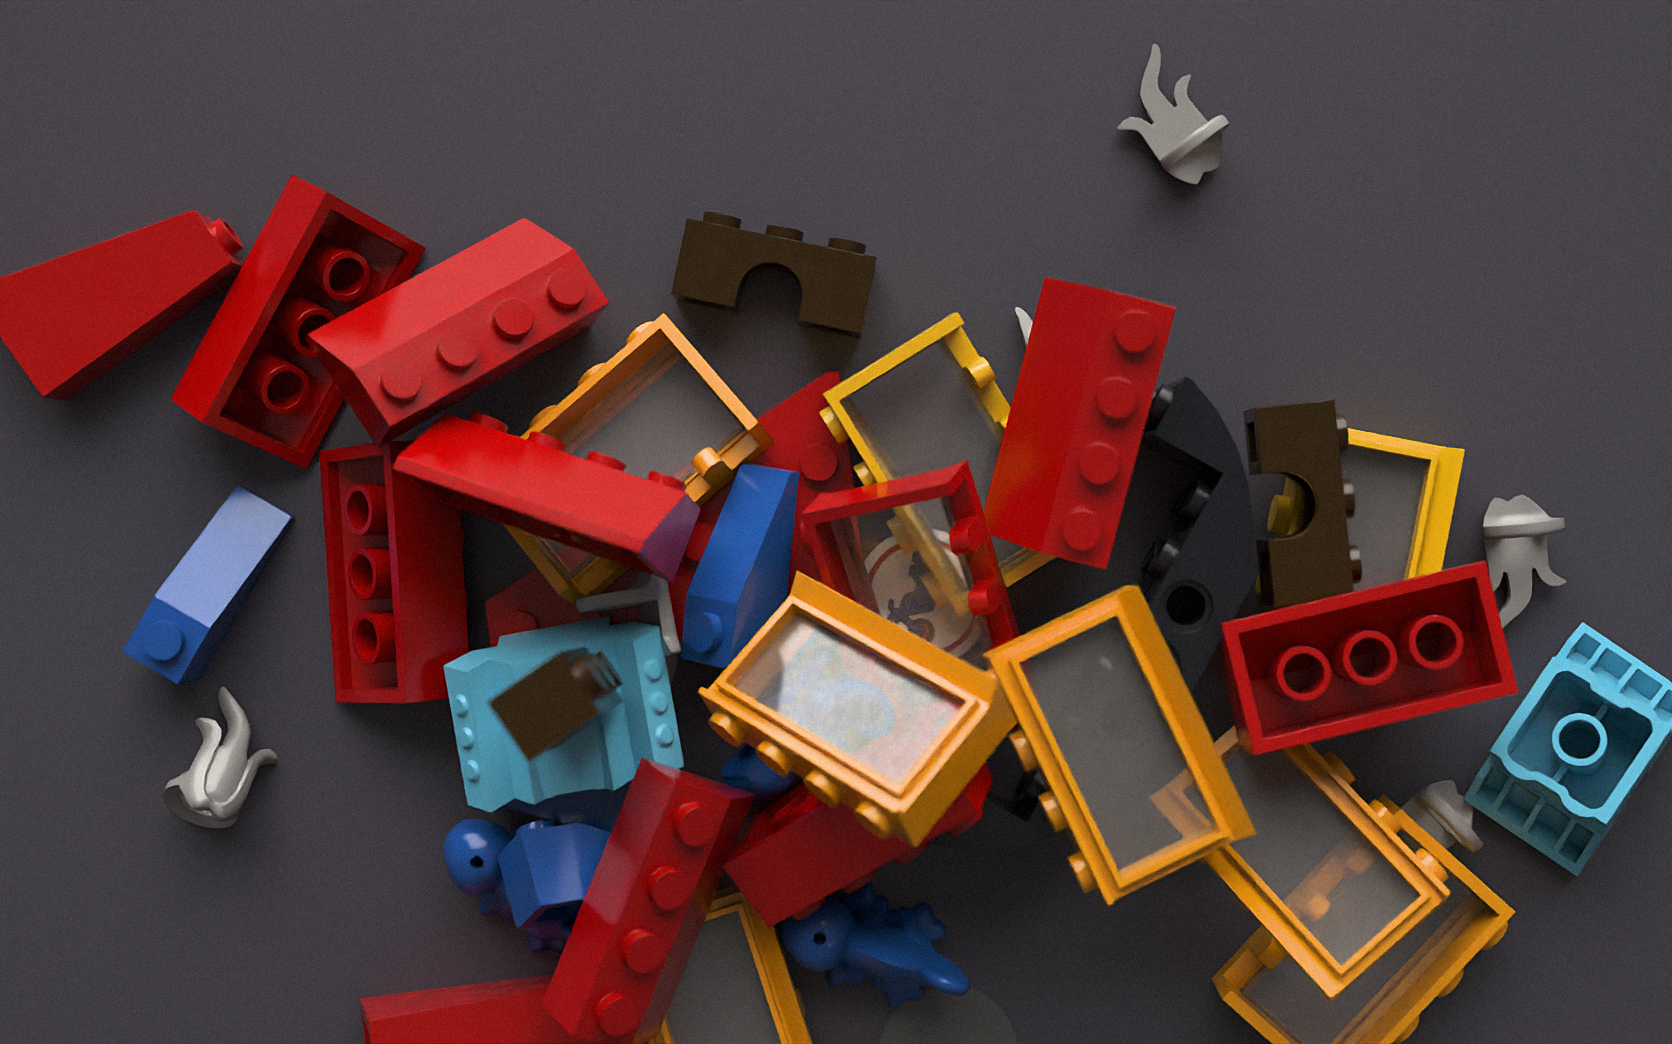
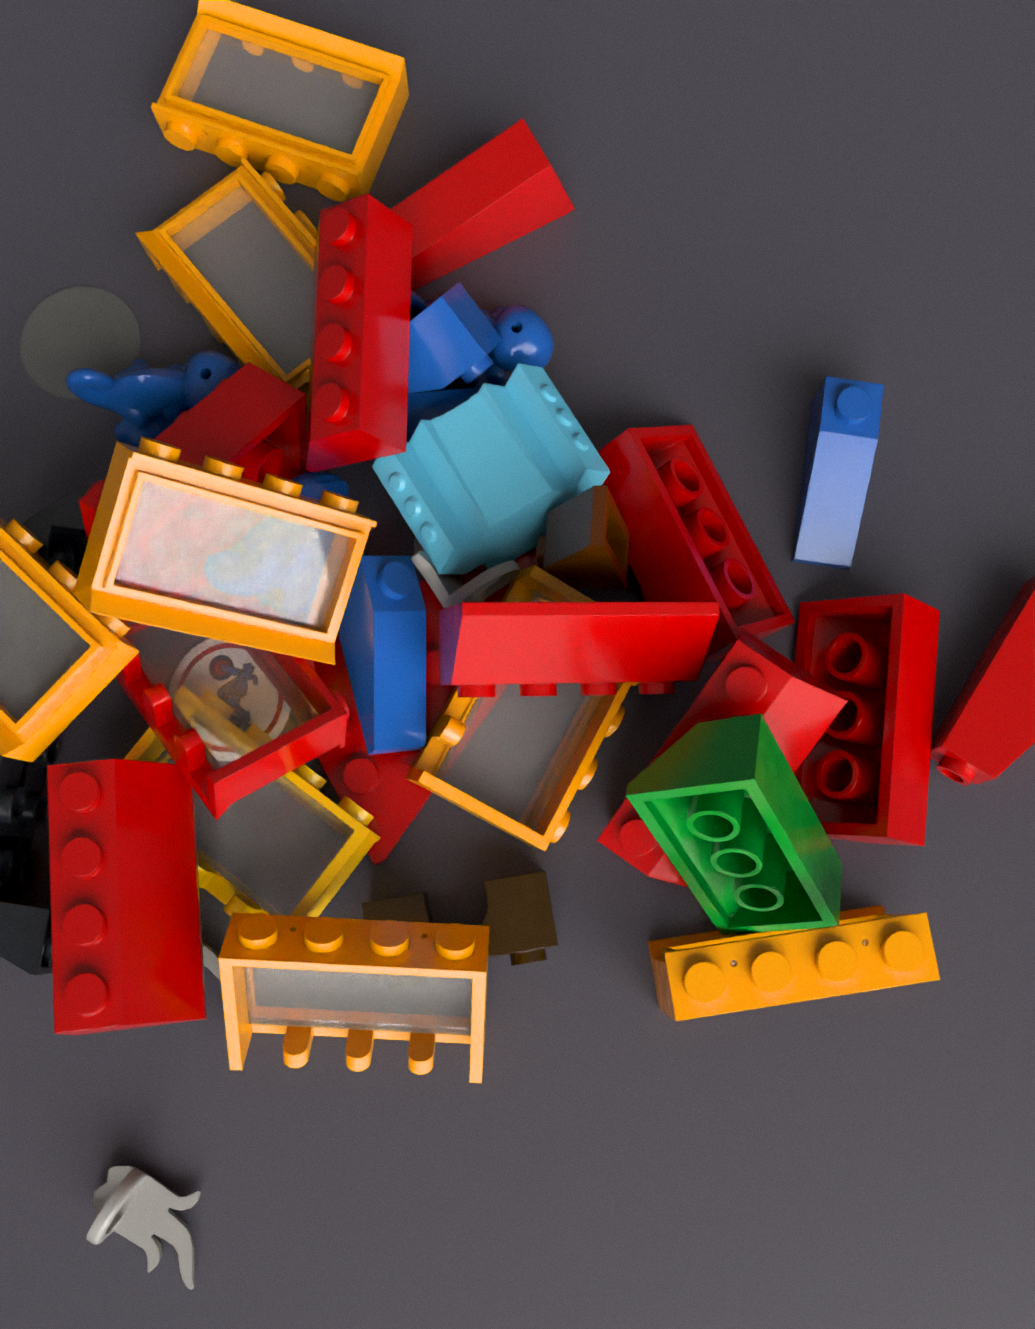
camera: 160 degrees right, 10 degrees down
(219, 774) = (758, 326): light grey piece -> none
(463, 250) = (740, 829): none -> green slope
(472, 115) = (757, 970): none -> light orange window
(500, 598) = (586, 542): none -> reddish brown slope
(557, 700) = (485, 449): dark brown arch -> none
(888, 253) = (356, 984): none -> light orange window

